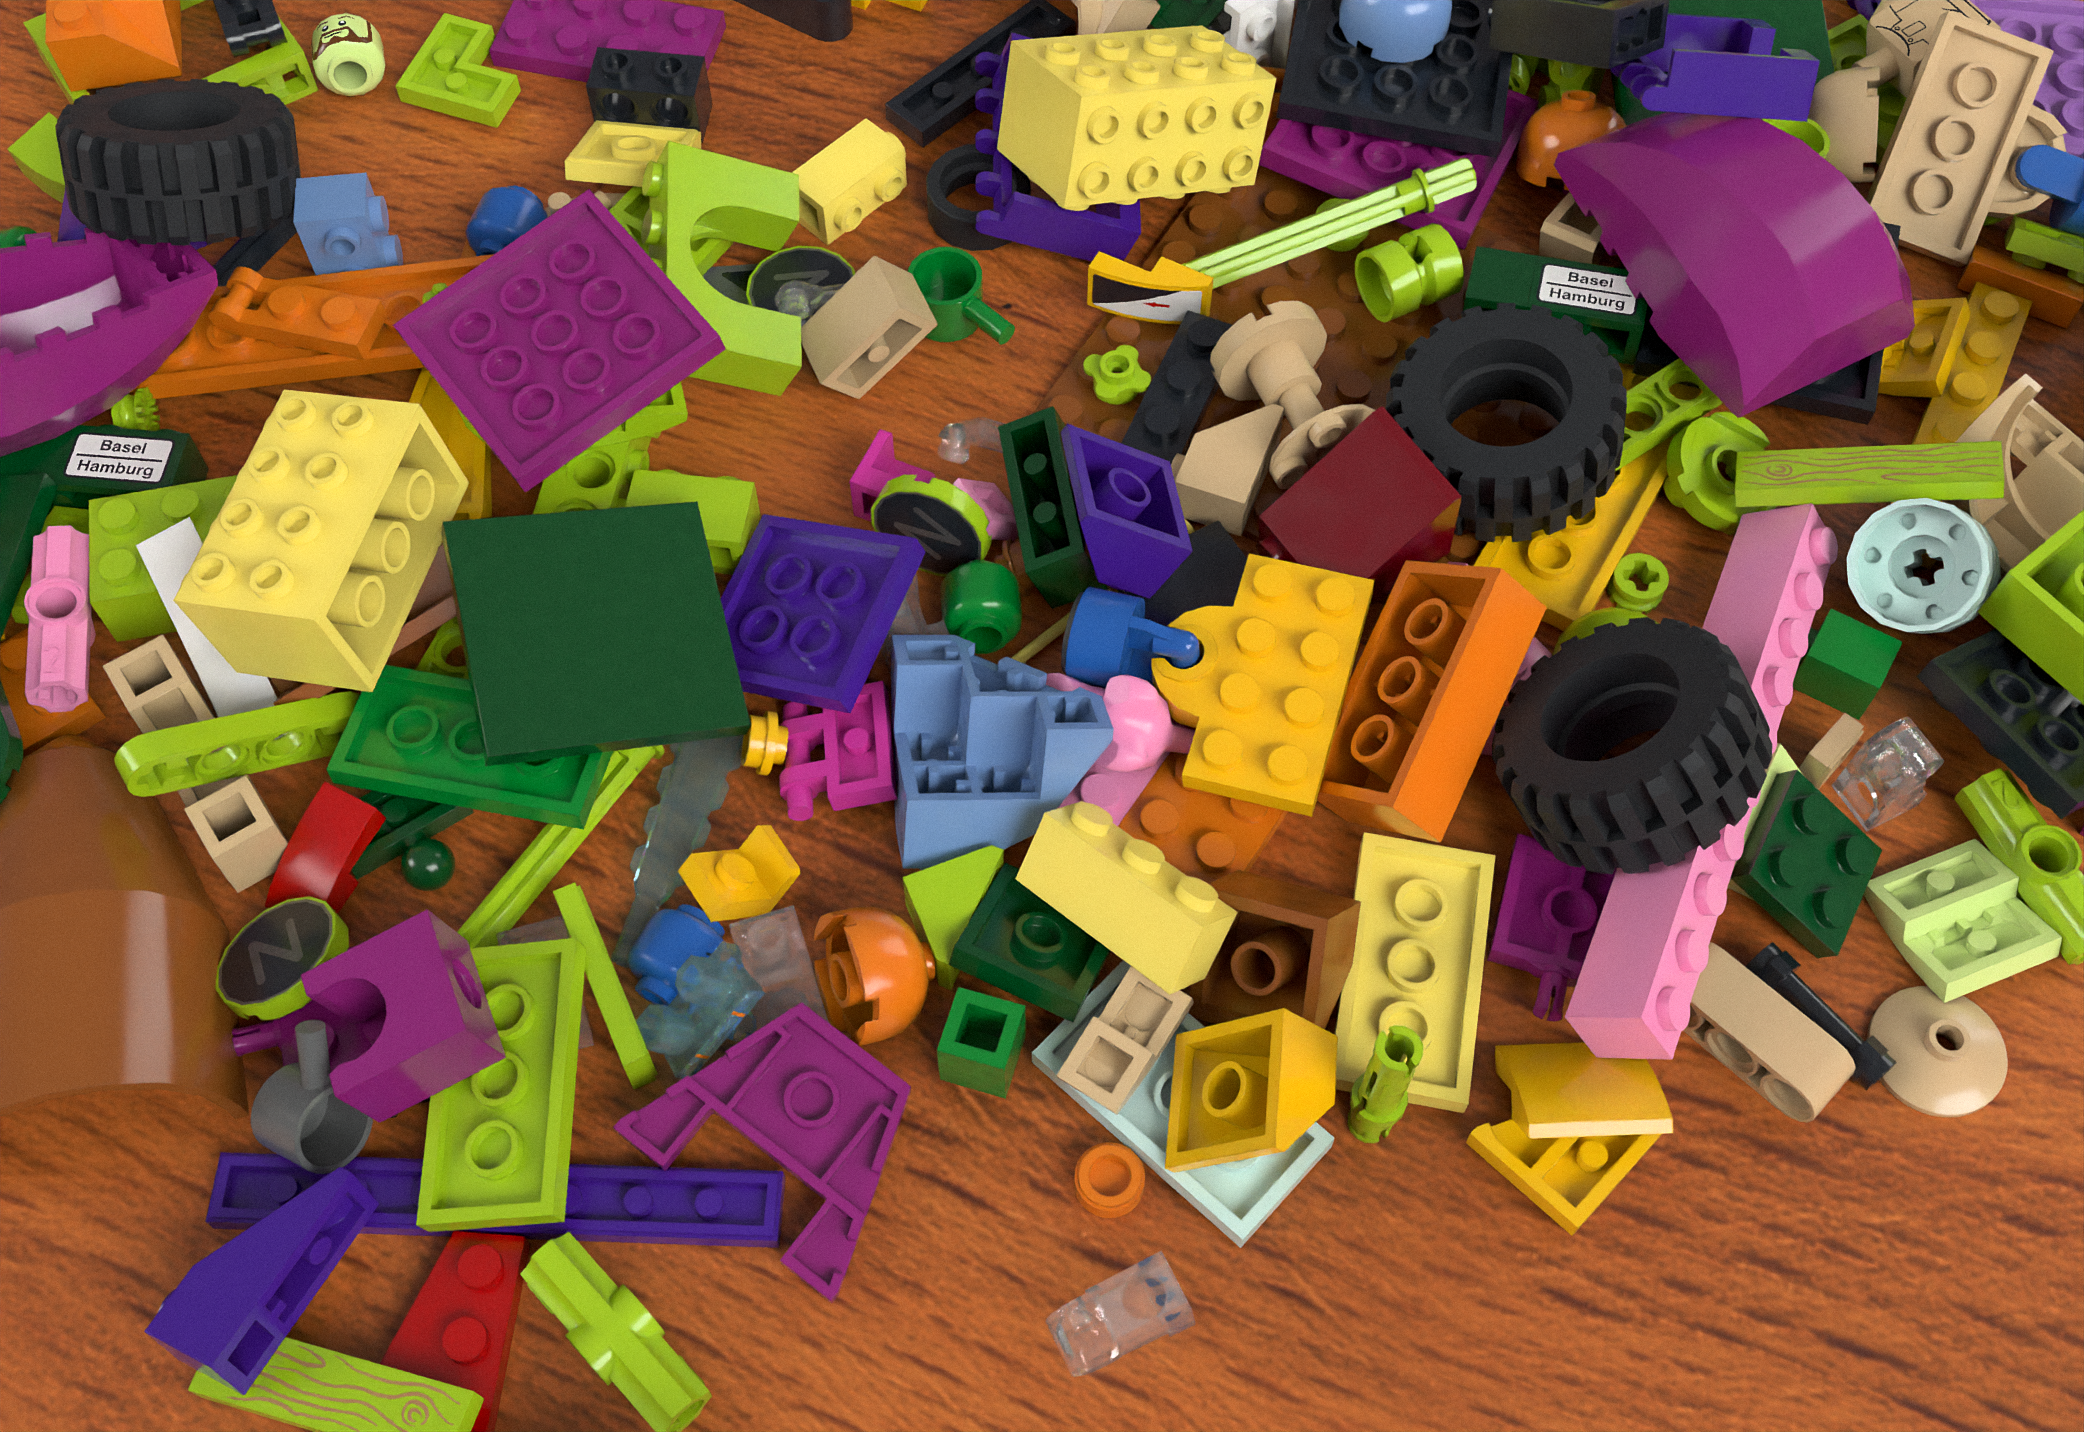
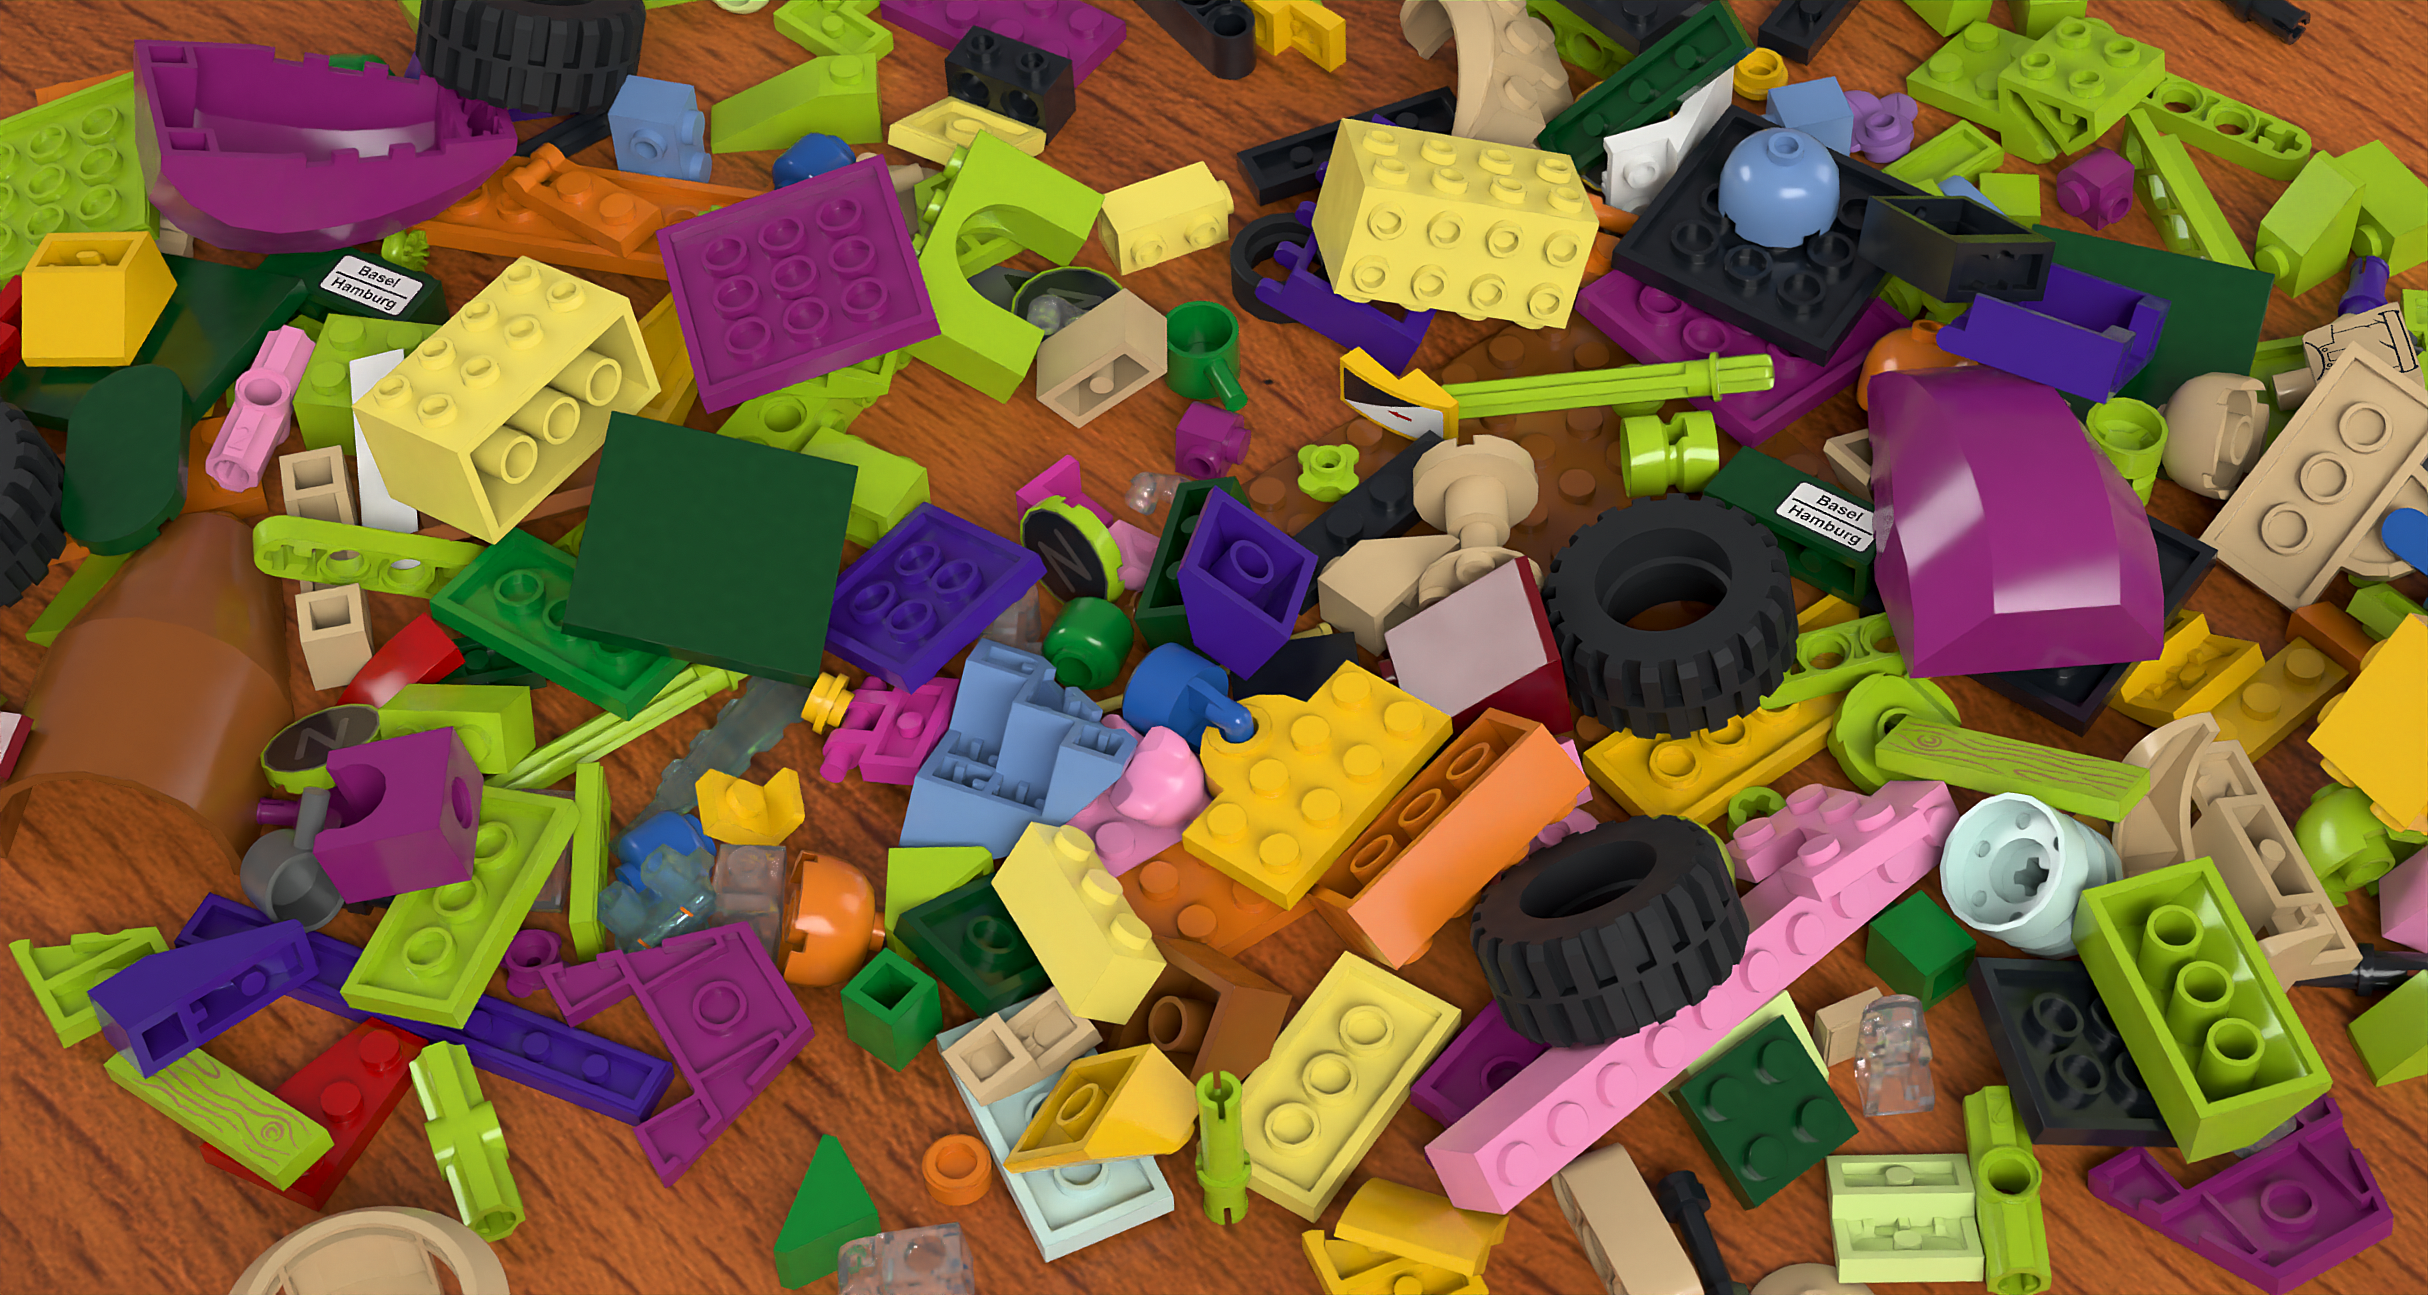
camera: 25 degrees right, 10 degrees down
(123, 1292) = (66, 973): none -> lime wing
(396, 884) = (489, 720): none -> lime brick
(462, 164) = (821, 96): none -> lime slope
(597, 1091) = (526, 949): none -> magenta plate
(993, 378) = (1210, 441): none -> magenta plate
(1024, 1282) = (824, 1216): none -> green slope
(1785, 578) = (1824, 840): none -> bright pink plate

